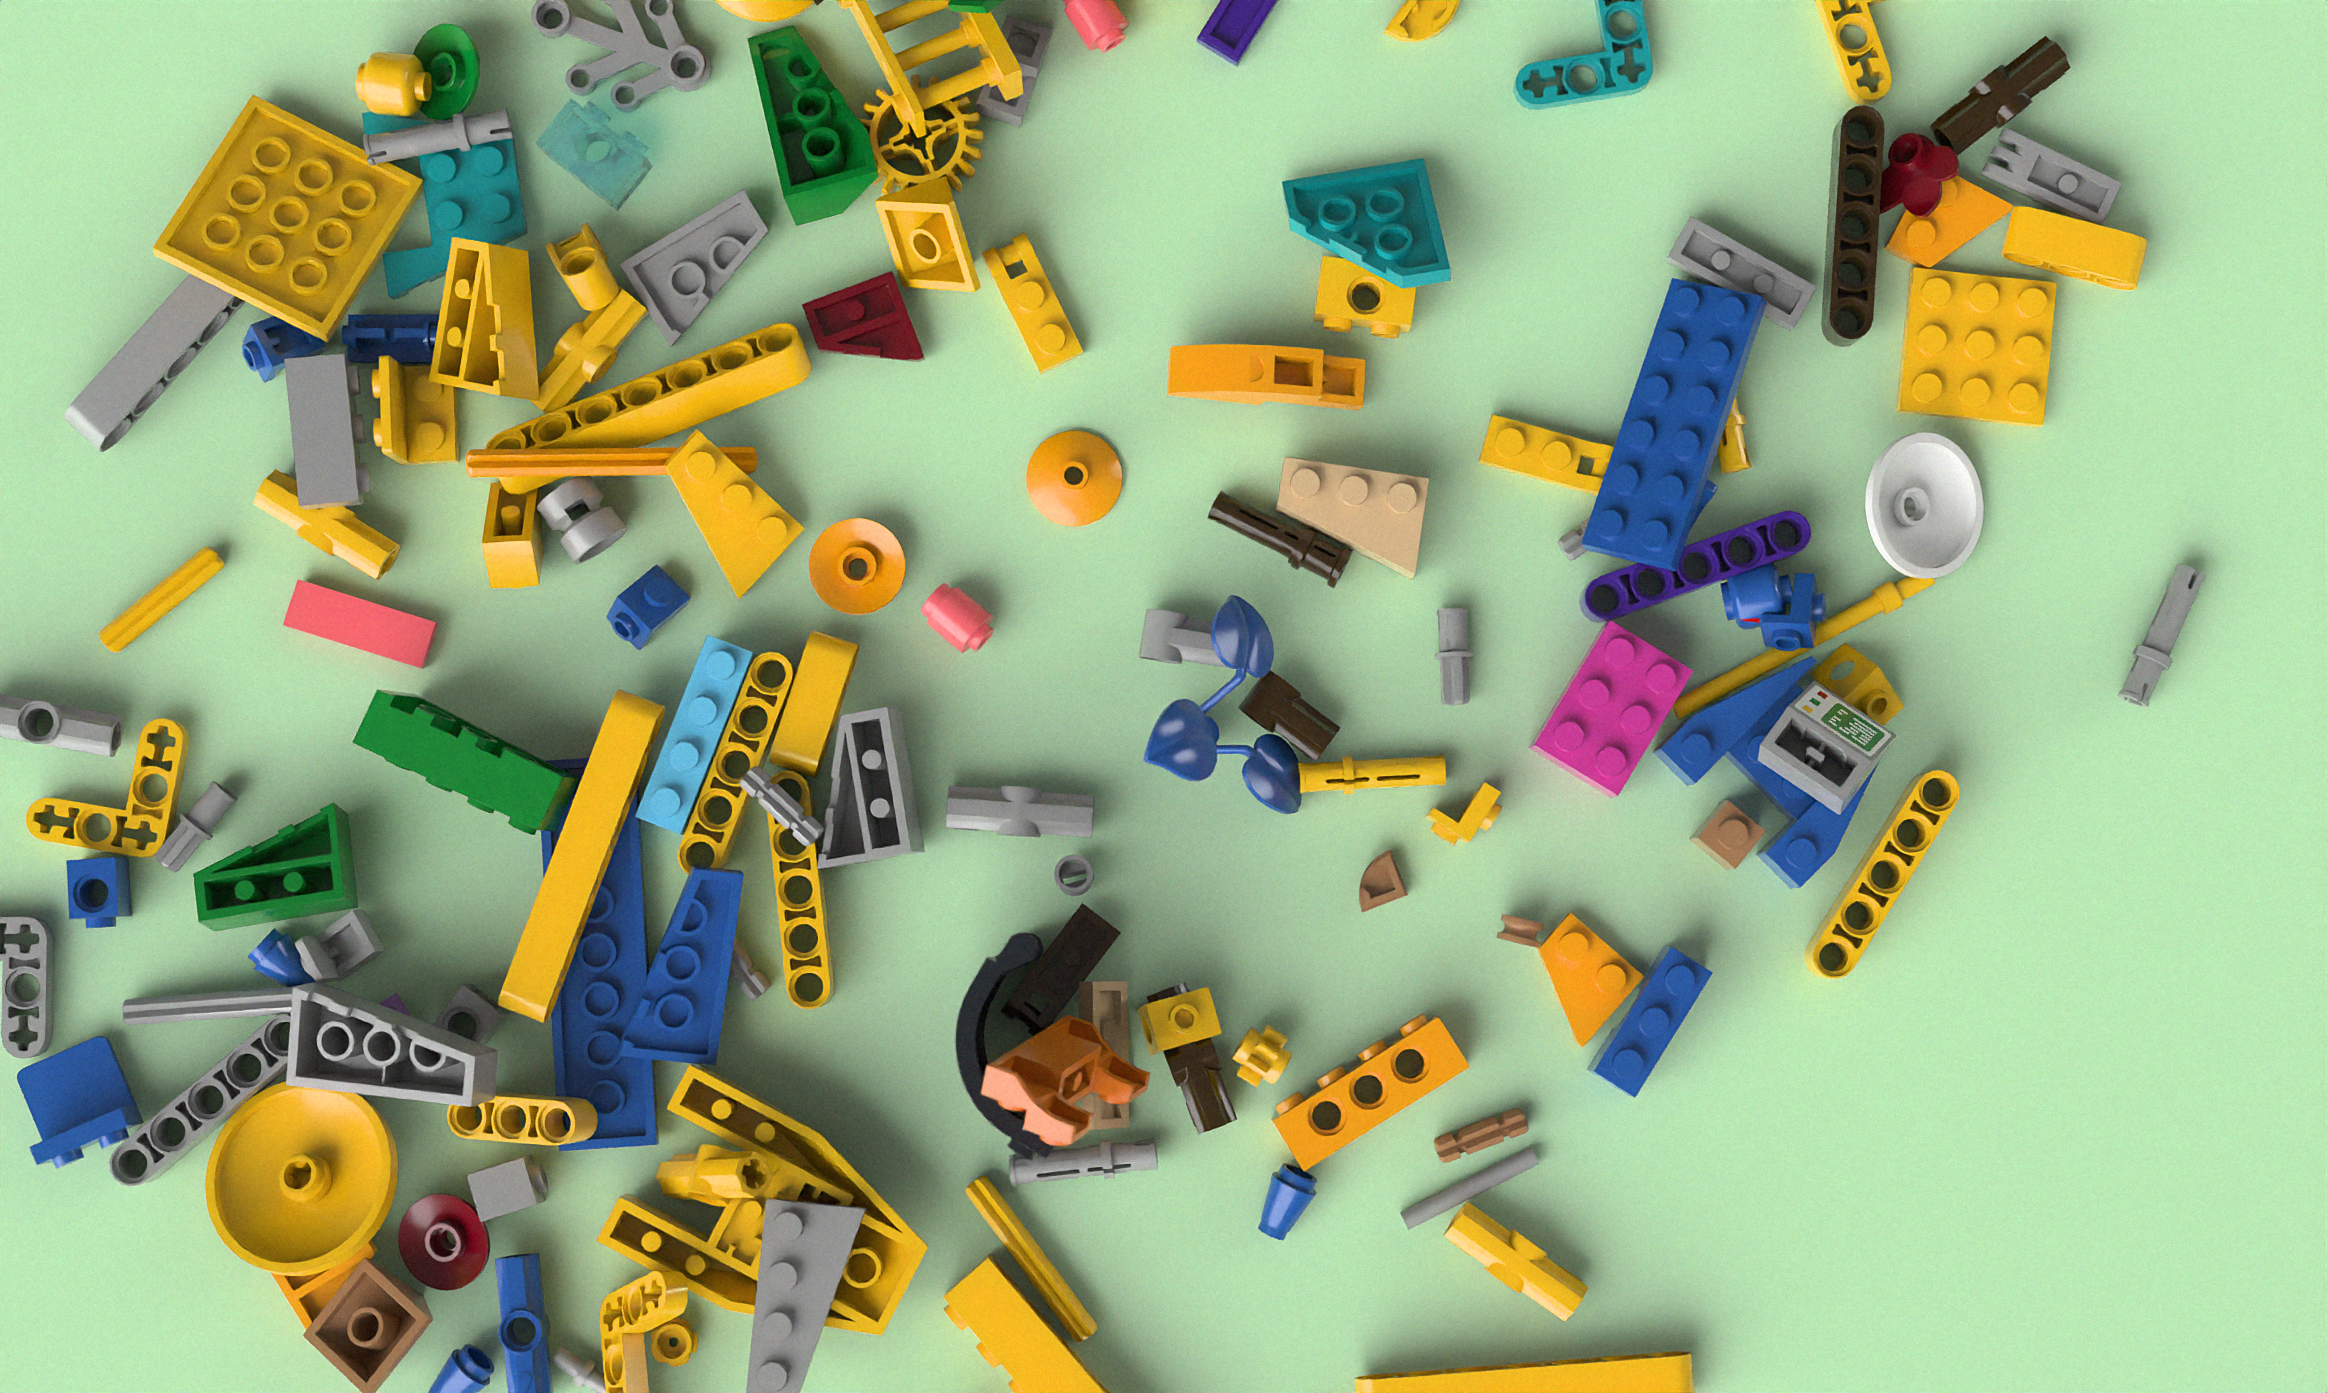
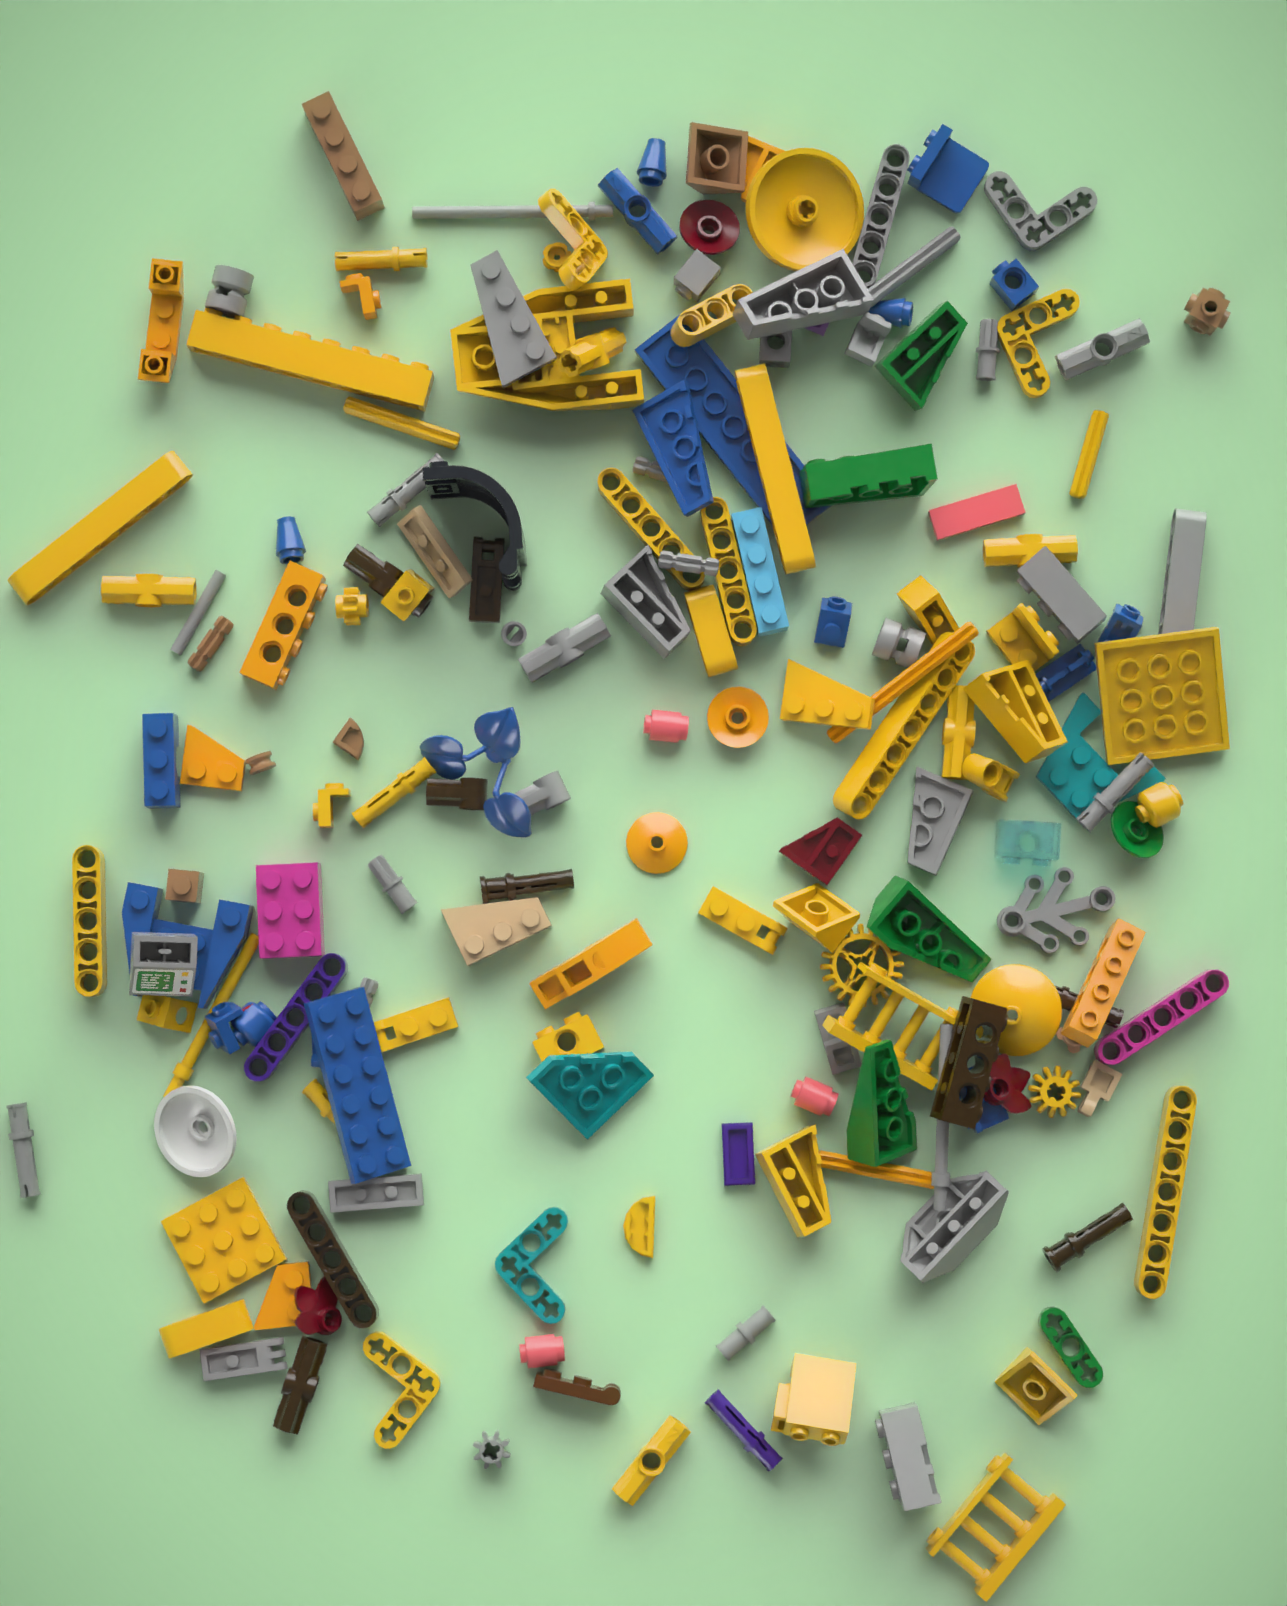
camera: 145 degrees right, 0 degrees up
(1055, 1072) = (450, 517): orange bracket -> none

